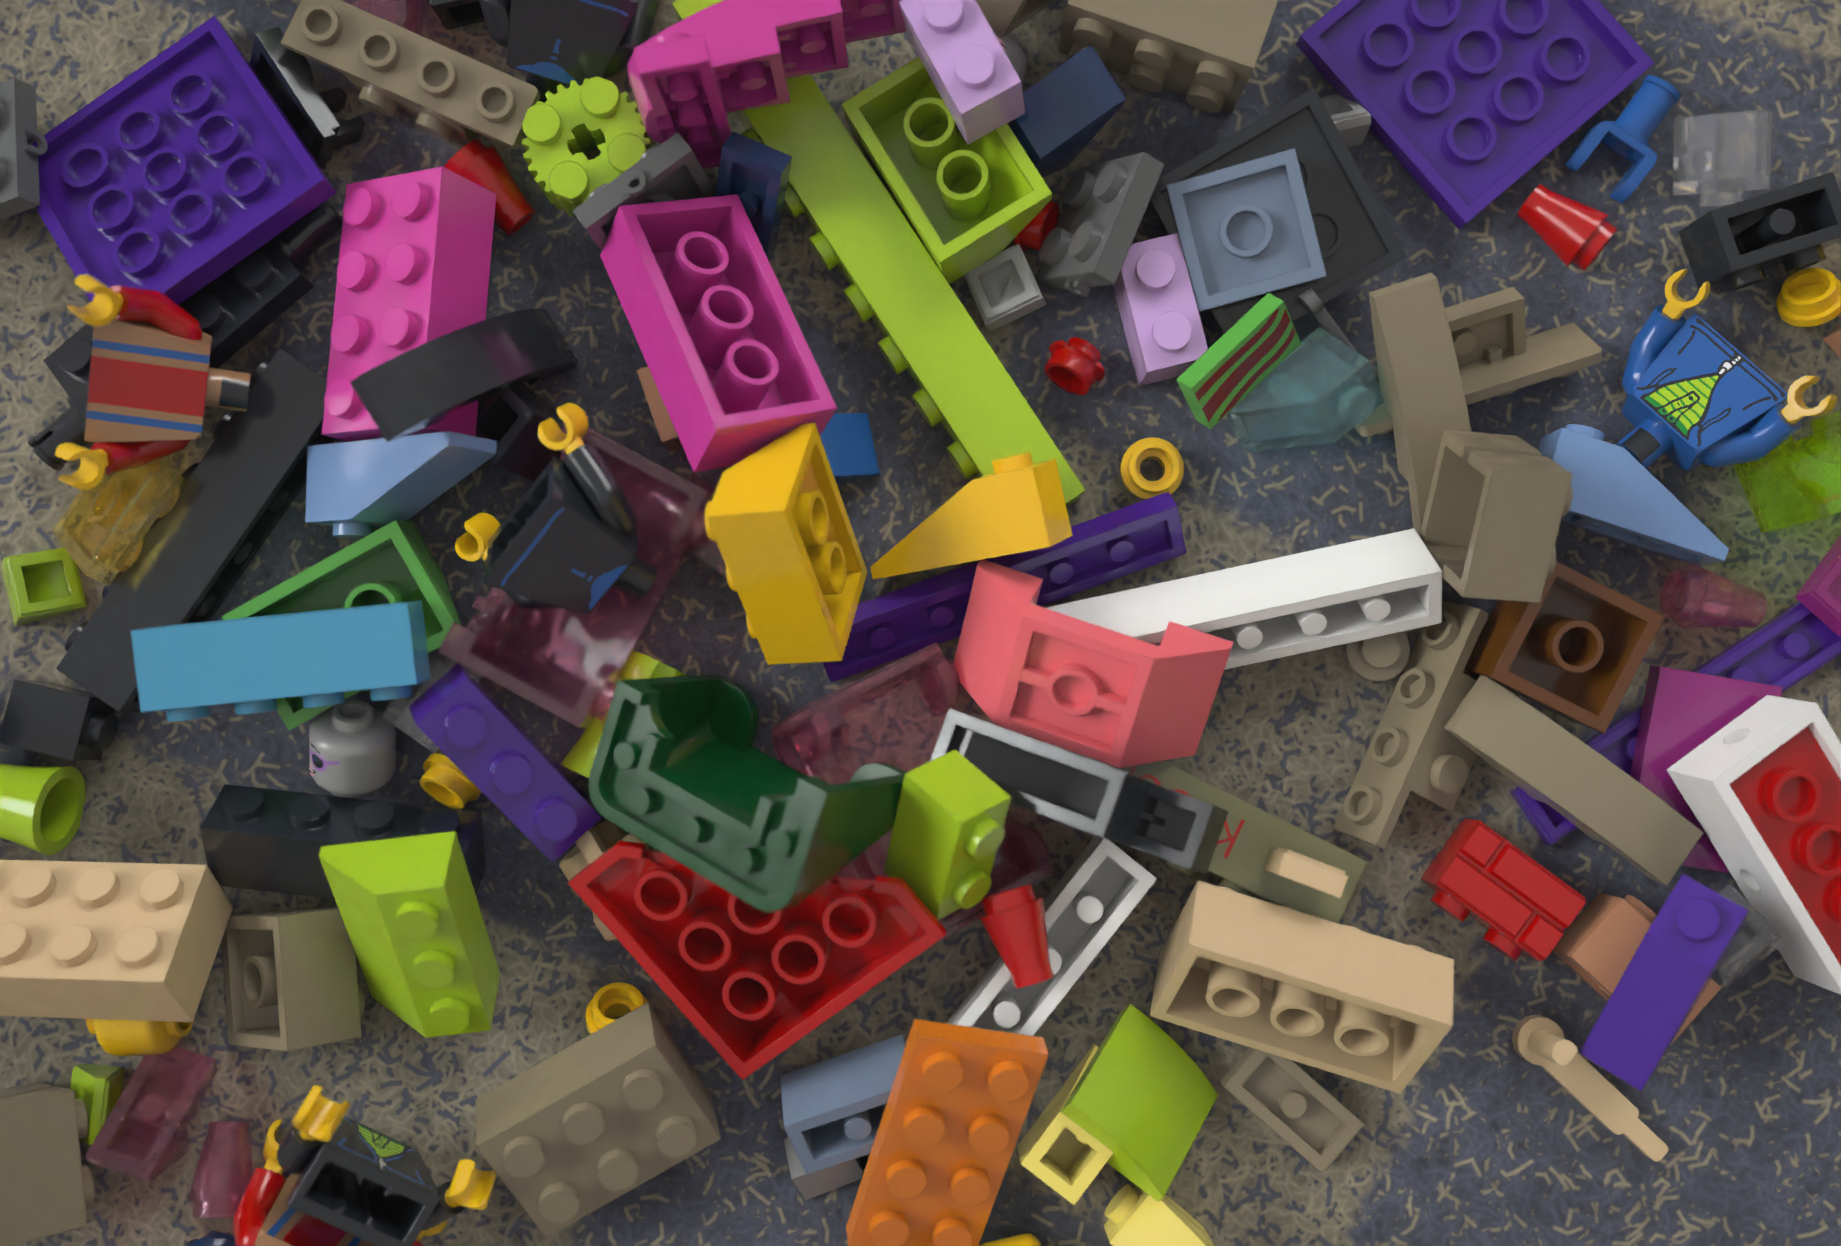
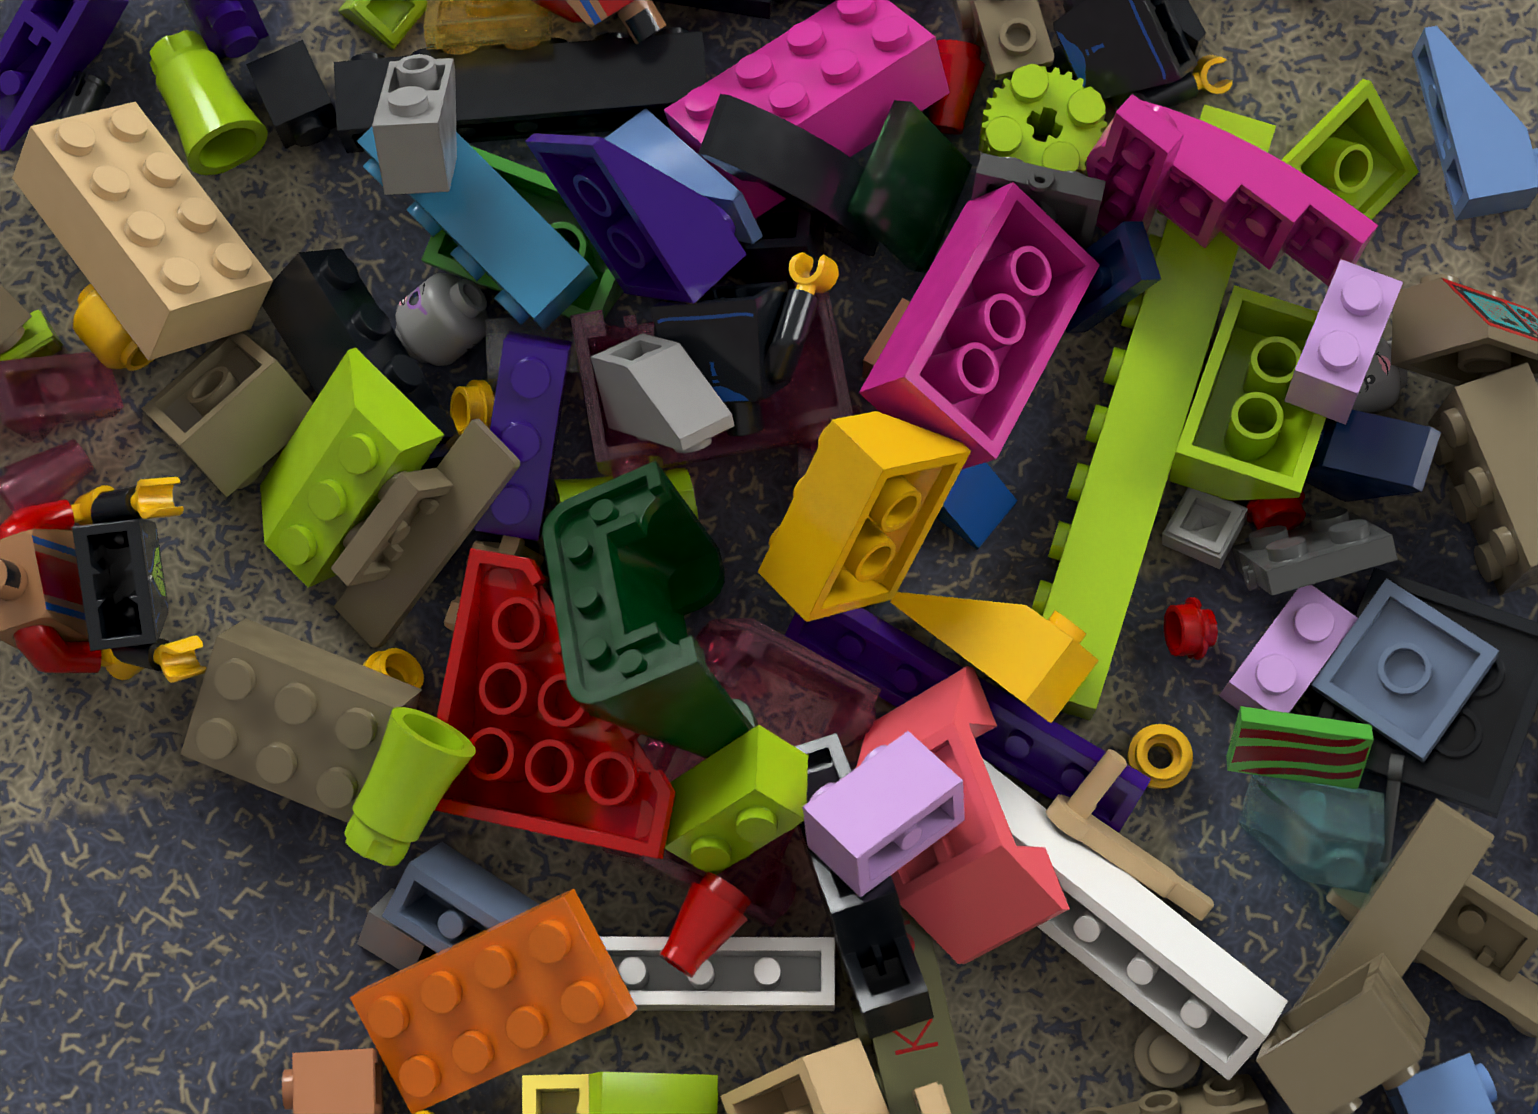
camera: 55 degrees right, 10 degrees down
(168, 655) = (417, 126): none -> light grey slope
(408, 533) = (642, 222): none -> dark purple slope
(516, 908) = (417, 530): none -> dark tan bracket
(548, 289) = (910, 186): none -> clear green tile
(564, 632) = (659, 394): none -> light grey slope
(717, 1077) = (405, 784): none -> lime plant
(1055, 731) = (883, 812): none -> lavender brick
(1159, 574) = (1075, 819): none -> tan piece

